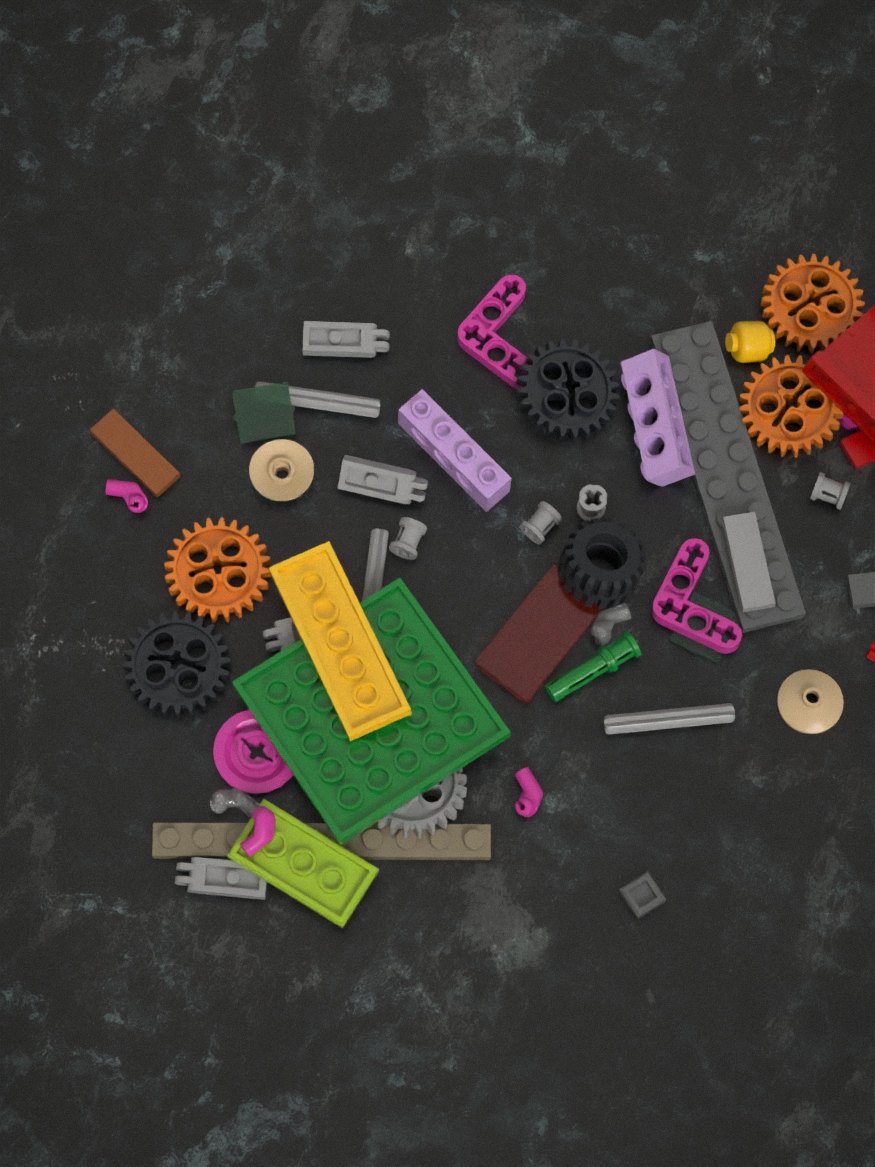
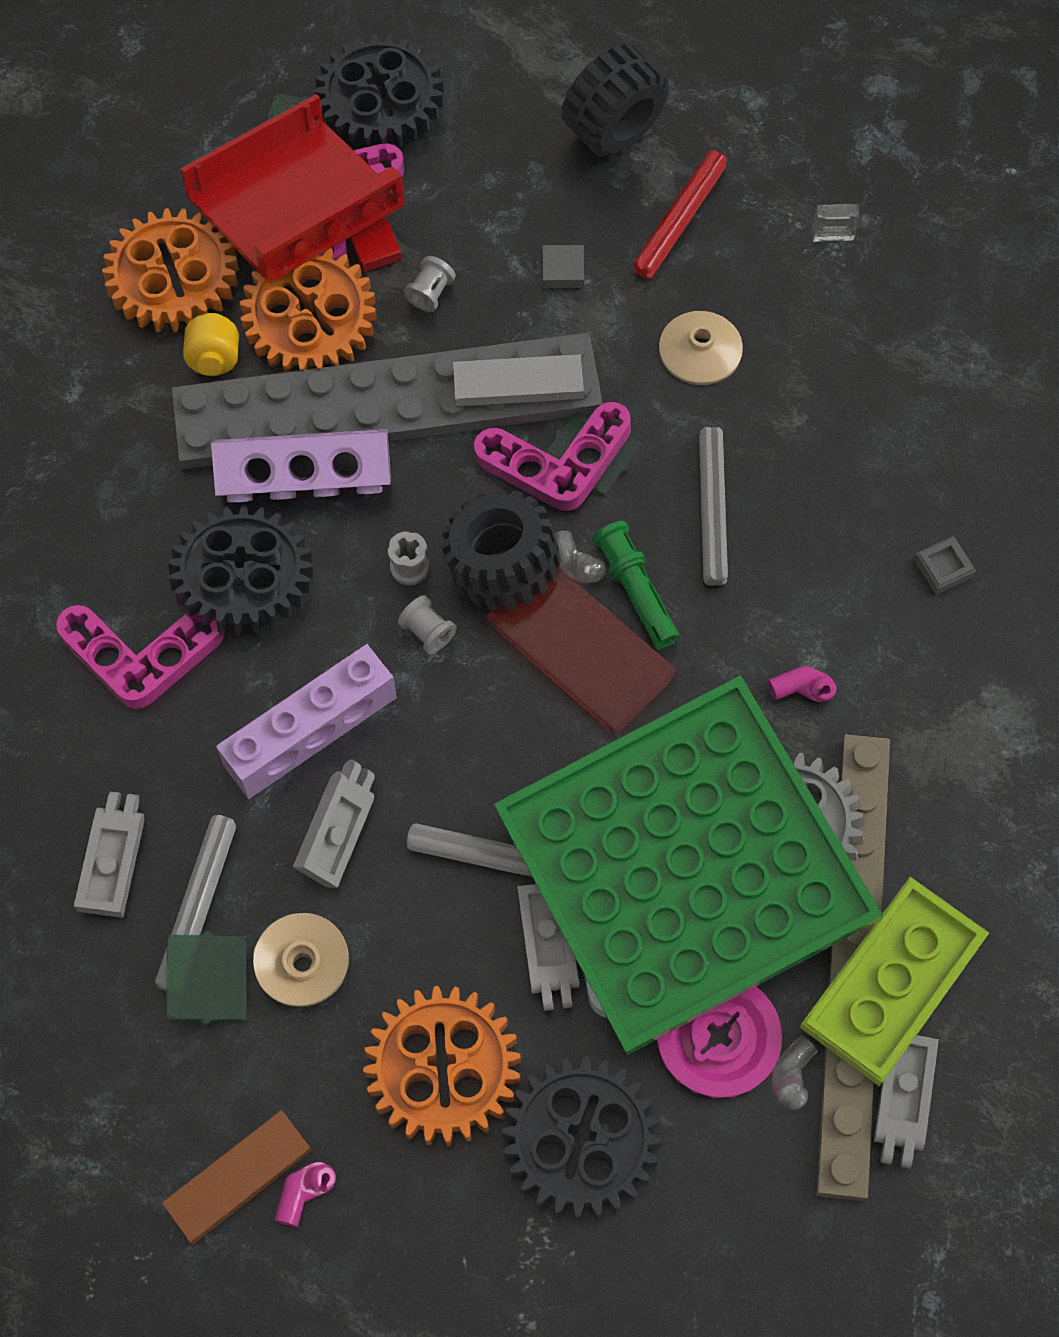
camera: 80 degrees left, 5 degrees down
(263, 831) = (856, 1023): dark pink arm -> none
(340, 641) = (585, 888): yellow plate -> none
(408, 538) = (427, 797): light grey bush -> none

